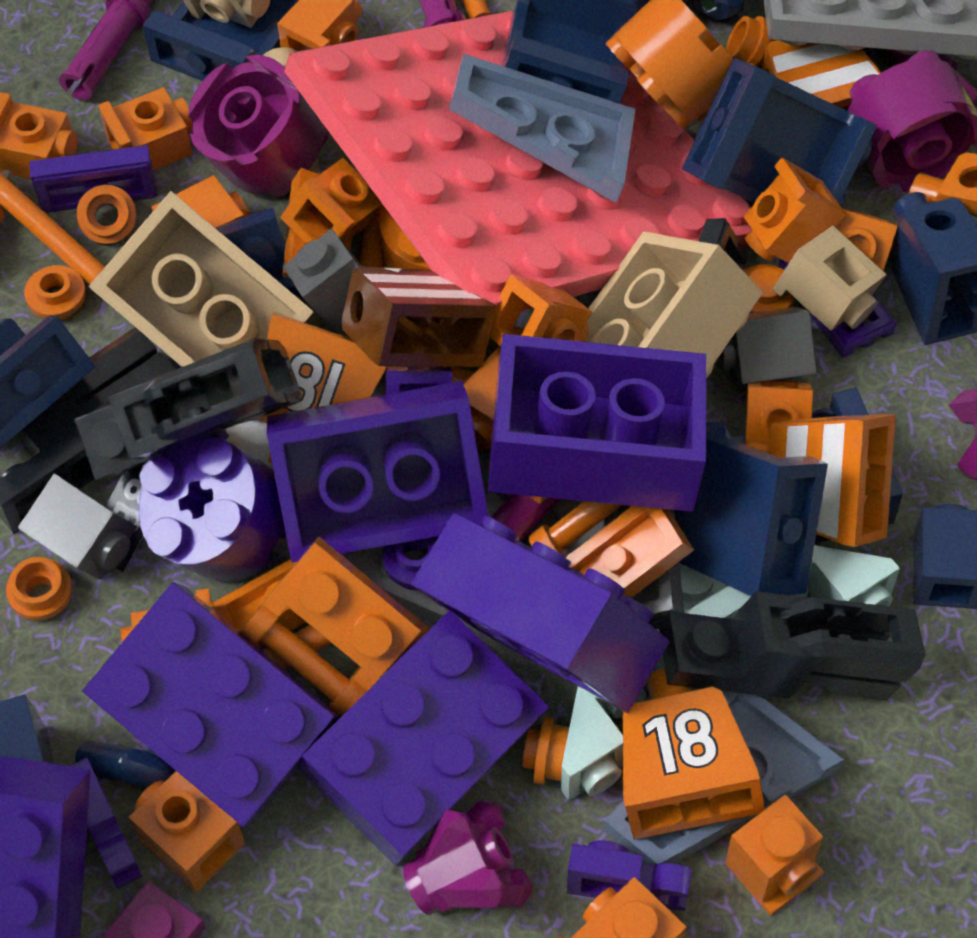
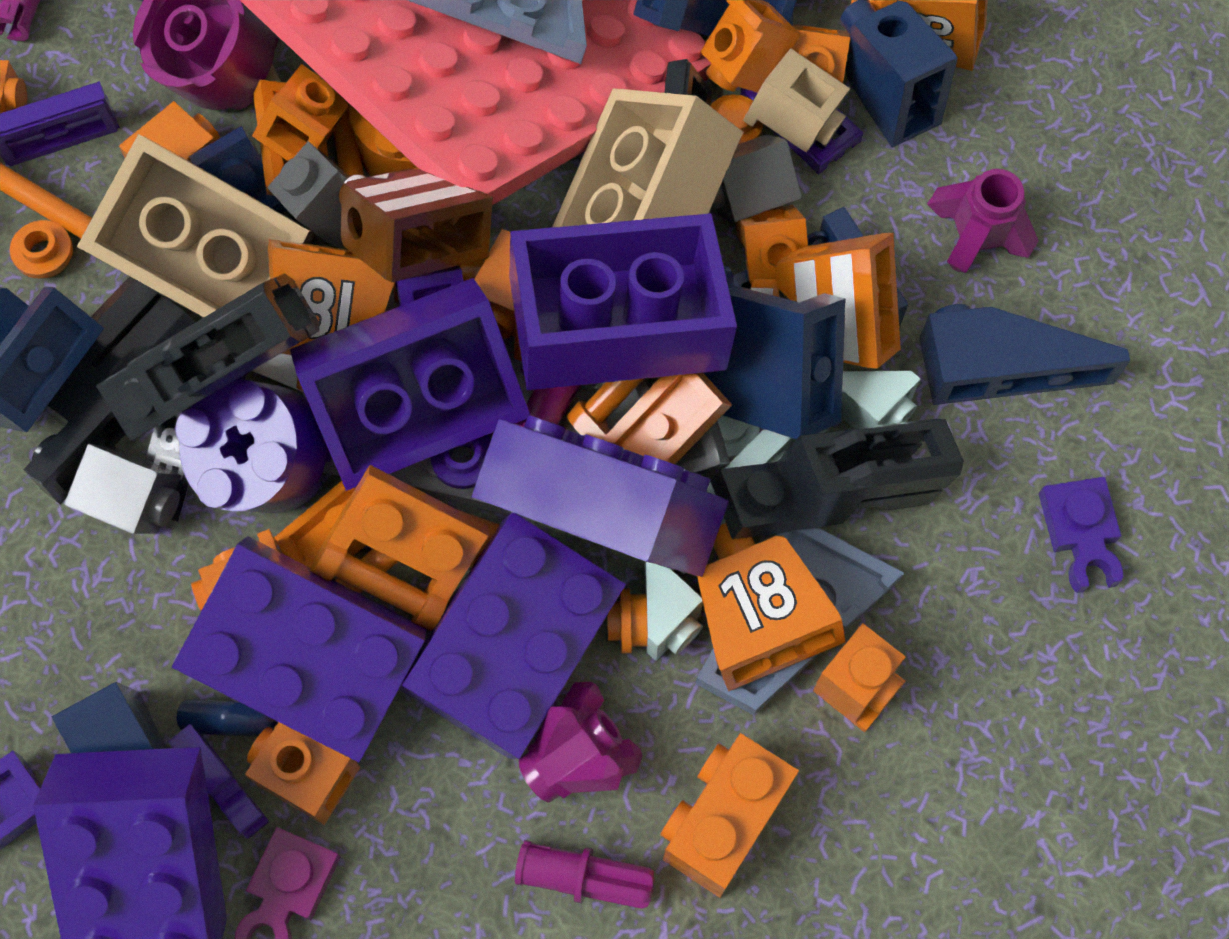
camera: 15 degrees left, 10 degrees up
(32, 573) = (90, 541): orange plate -> none
(97, 198) = (54, 158): orange plate -> none
(151, 122) = (94, 56): orange brick -> none
(554, 313) = (551, 200): orange brick -> none
(612, 865) = (710, 723): dark purple plate -> none

